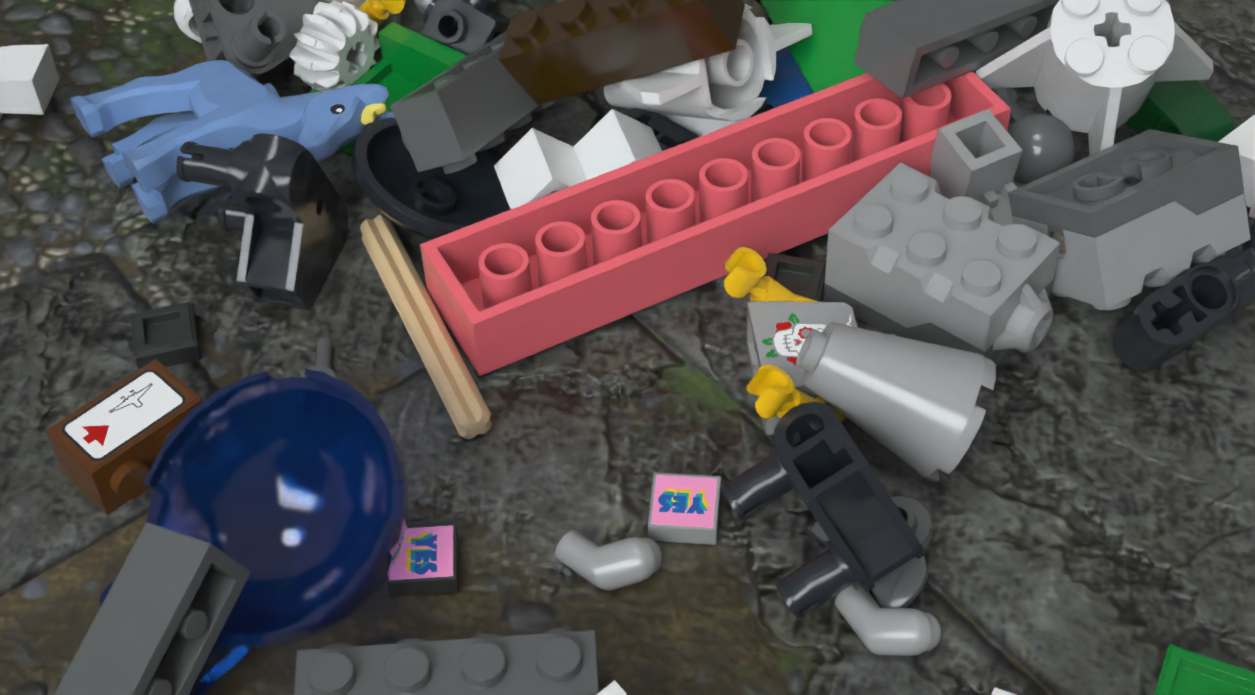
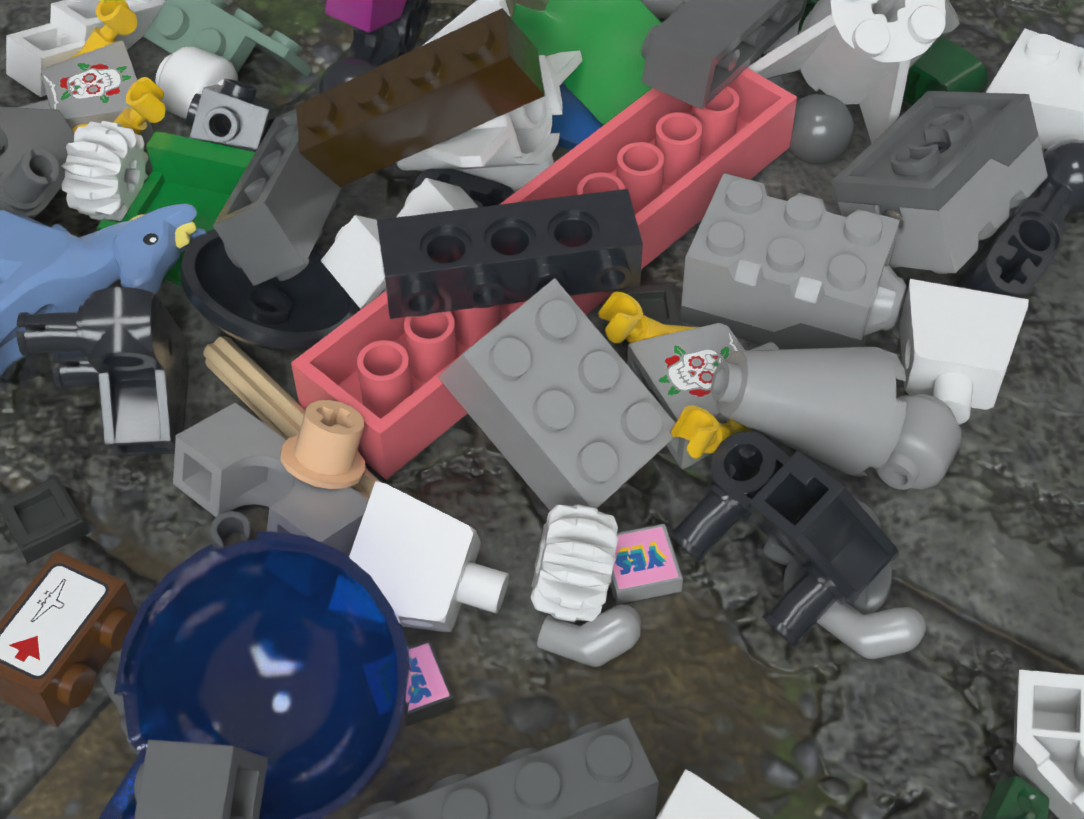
camera: 20 degrees left, 5 degrees up
(352, 326) = (237, 463): none -> light grey arch
(423, 325) = (326, 446): none -> light nougat piece
(467, 452) = (424, 561): none -> white torso
(610, 484) = (574, 563): none -> white gear
(652, 336) = (559, 402): none -> light grey brick
(653, 189) = (509, 252): none -> black brick
(977, 161) = (785, 157): light grey brick -> none
(1005, 463) = (925, 445): none -> light grey head
(1091, 384) = (958, 343): none -> white torso

